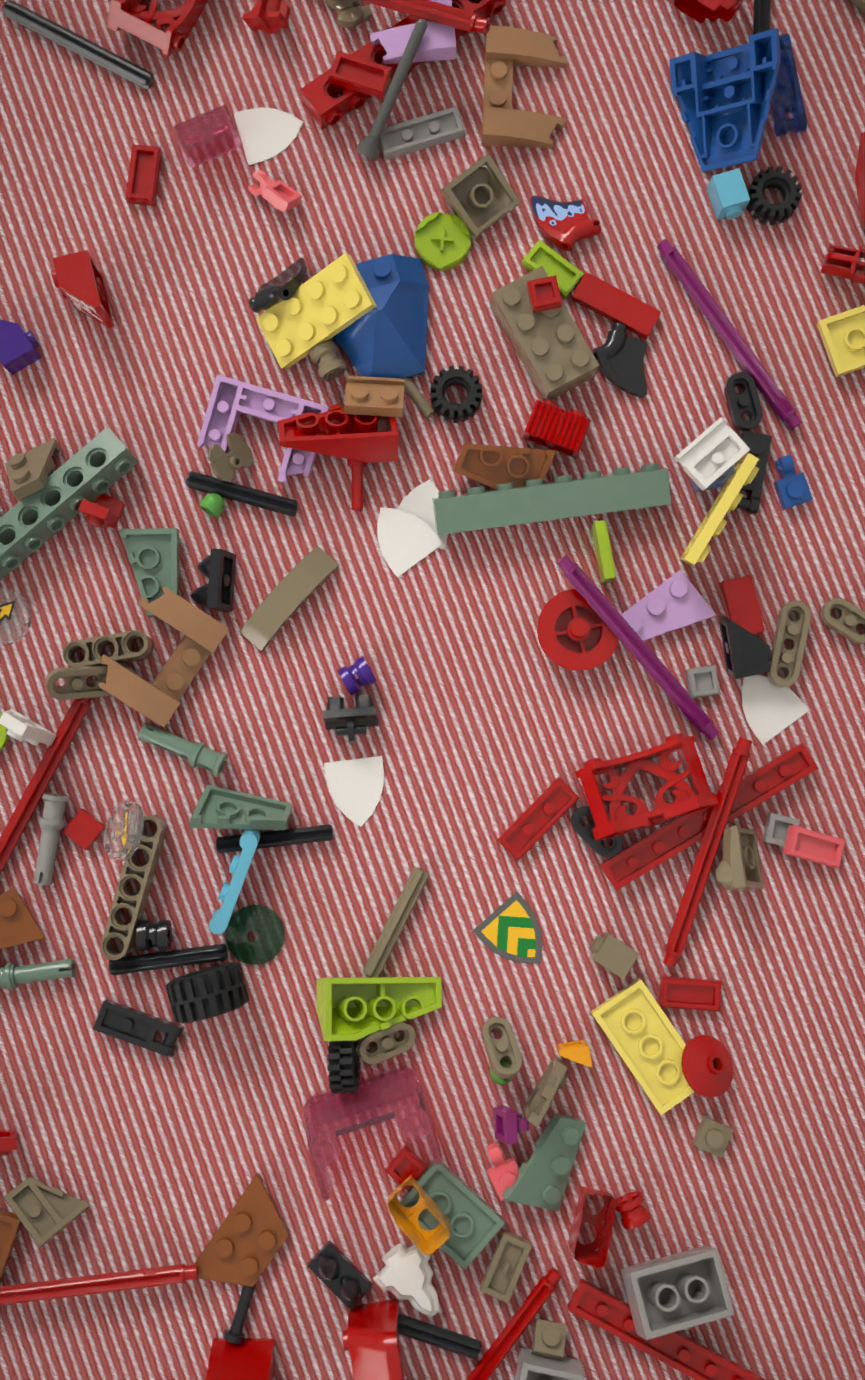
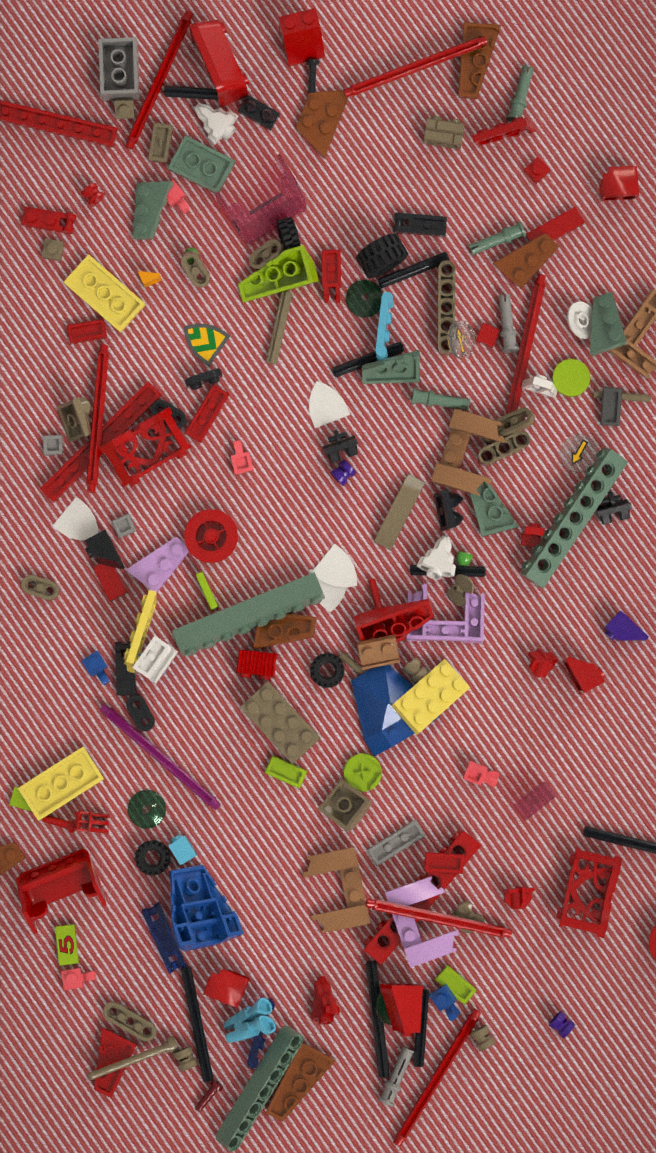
camera: 170 degrees right, 0 degrees up
(30, 470) = (584, 549): dark tan wing -> none
(43, 1209) = (446, 105): dark tan wing -> none
(60, 1165) = (444, 133): none -> dark tan brick
(141, 325) = (541, 662): none -> red piece
(143, 175) = (571, 766): red tile -> none
(153, 935) = (425, 282): black wheel -> none
(249, 508) = (439, 560): none -> white rock
(265, 132) = (499, 818): white sticker -> none
(279, 288) = (458, 710): black arm -> none
(294, 986) = (331, 273): none -> red hinge
(370, 144) = (426, 822): dark grey piece -> none
(404, 1165) = (235, 184): red tile -> none
(425, 1240) = (213, 146): light orange piece -> none
(504, 732) = (241, 461): none -> coral plate
(508, 1124) = (179, 225): magenta tile -> none
(543, 871) = (212, 376): none -> black plate
(543, 1093) = (163, 248): dark tan wing -> none
(544, 294) = (286, 742): red tile -> none
(563, 221) = (286, 805): red arm -> none
(587, 1252) = (113, 162): red piece -> none
(613, 954) = (140, 342): dark tan brick -> none
(616, 305) = (238, 757): red tile -> none
(623, 360) = (225, 721): black arm -> none
(637, 646) = (168, 531): magenta piece -> none
(677, 1292) = (56, 155): light grey brick -> none
(699, 1070) = (72, 285): red dish -> none
(710, 1186) = (48, 220): none -> red plate
(761, 280) = (156, 805): none -> clear green dish
(797, 634) = (75, 554): dark tan plate -> none
(813, 846) = (30, 439): coral tile -> none

